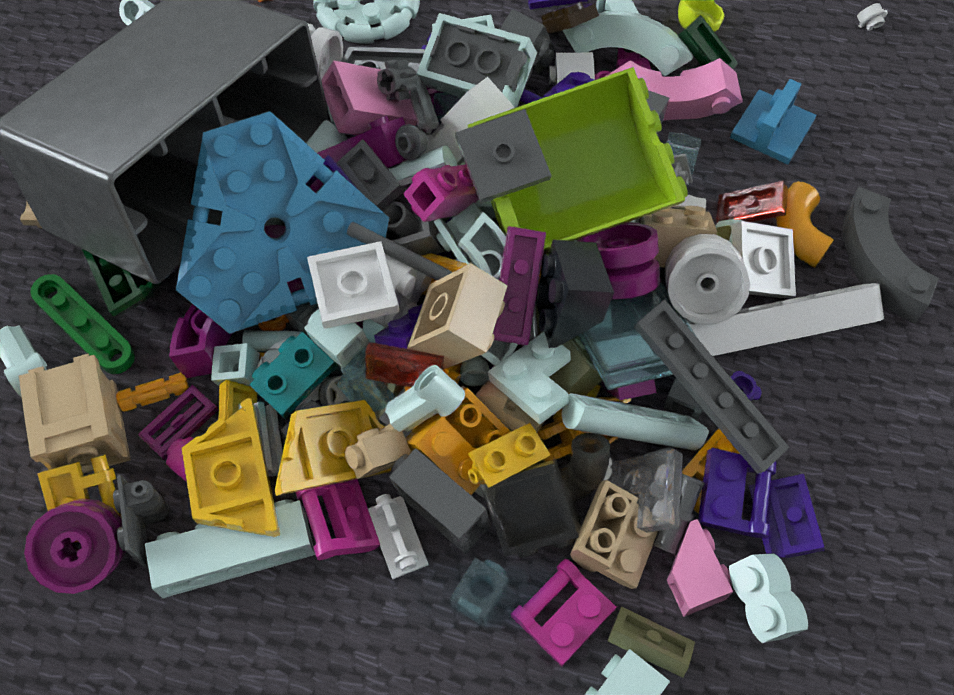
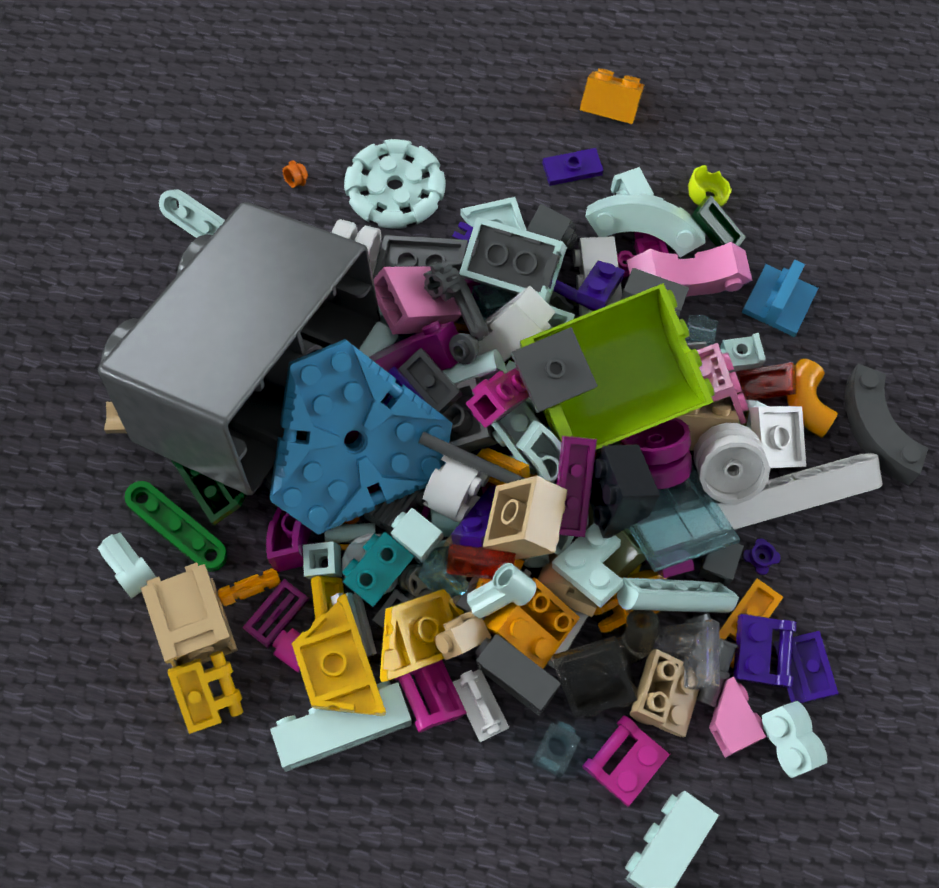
camera: 10 degrees left, 5 degrees up
(57, 560) = (211, 753): magenta wheel -> none
(138, 507) = (258, 694): dark grey hinge -> none
(353, 285) = (431, 493): white plate -> none
(506, 456) = (574, 636): yellow hinge -> none
(568, 16) = (589, 202): dark brown wing -> none
(652, 642) = (701, 782): olive plate -> none
(701, 190) = (725, 384): none -> bright pink bracket
(711, 387) = (740, 563): dark grey plate -> none
(725, 175) = (752, 349): none -> light aqua brick
(872, 16) = (865, 184): white plate -> none

